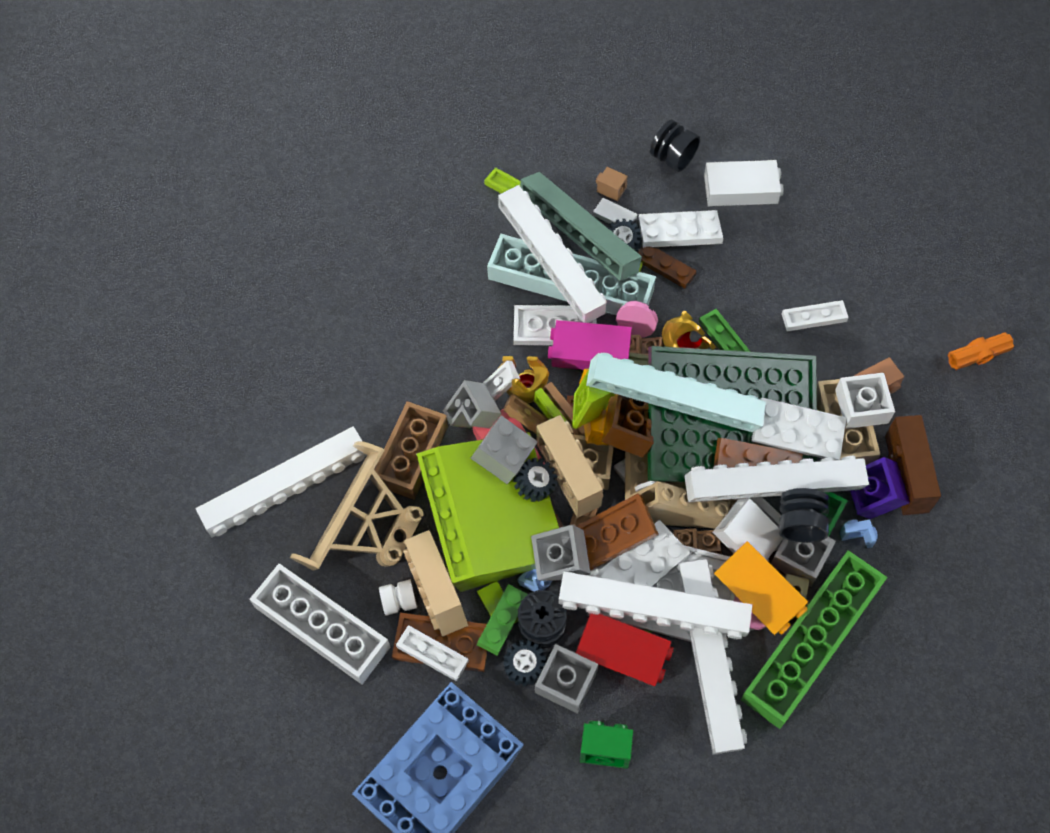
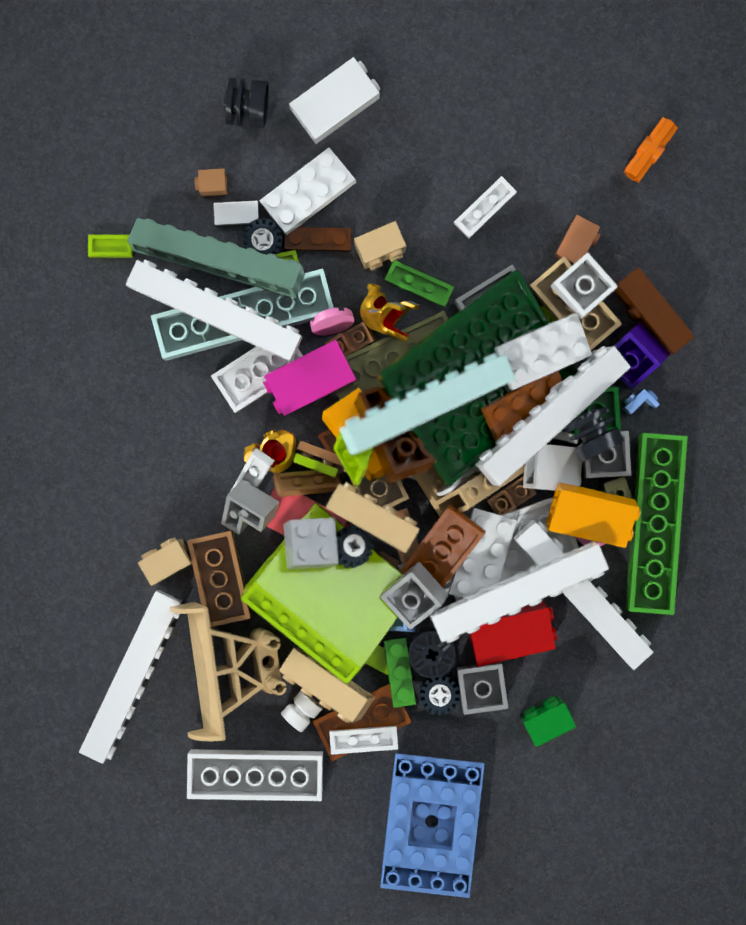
camera: 30 degrees left, 25 degrees up
(377, 408) = (165, 562): none -> tan brick
(712, 289) = (380, 246): none -> tan brick

